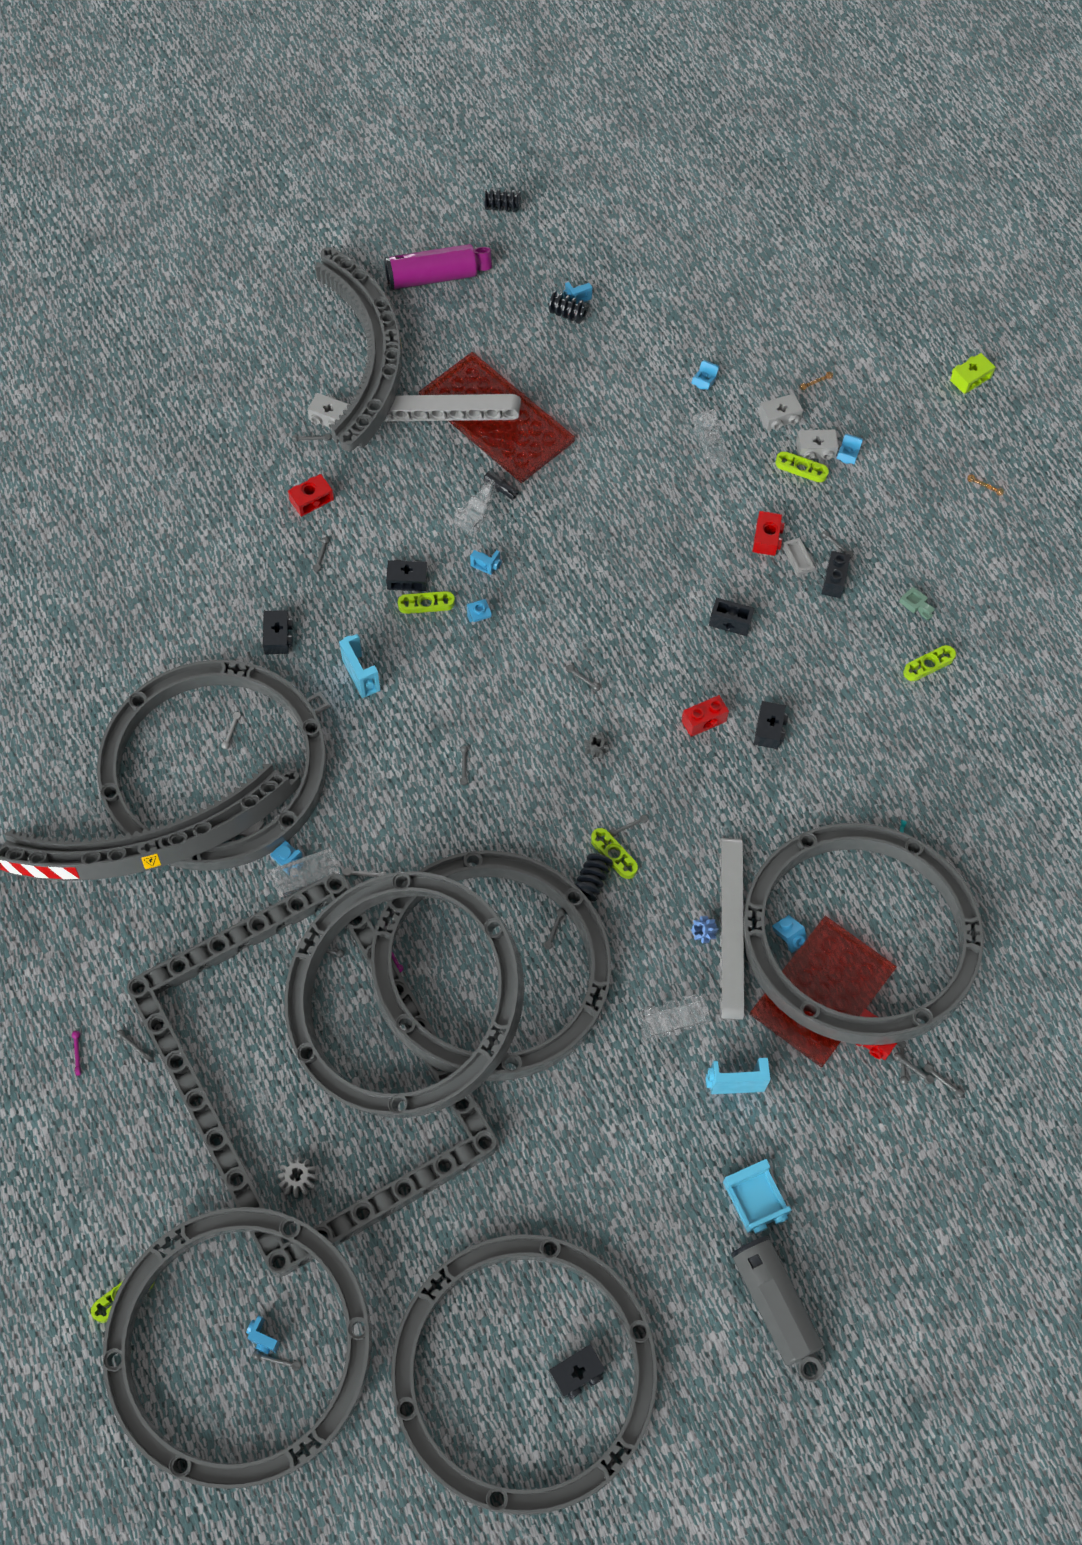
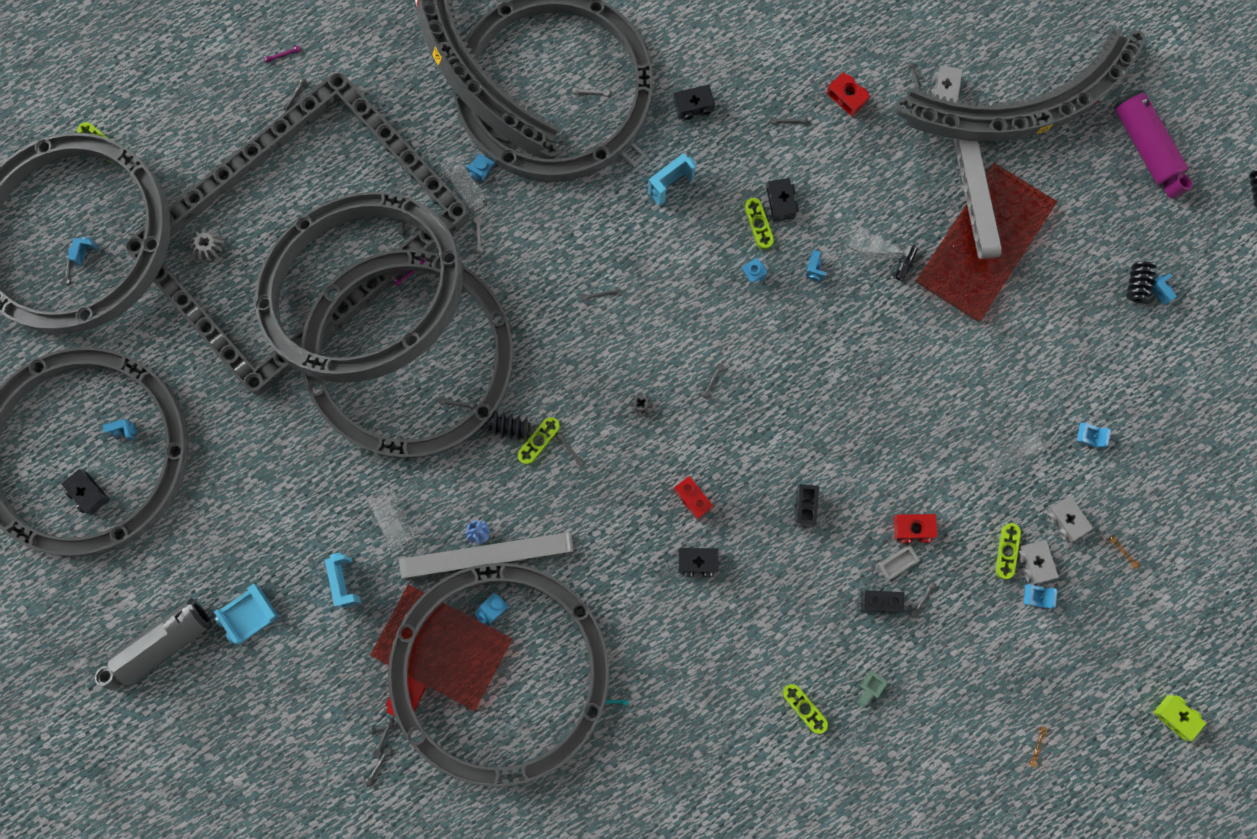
camera: 80 degrees right, 15 degrees up
(506, 1320) = (120, 427): none -> dark azure bracket

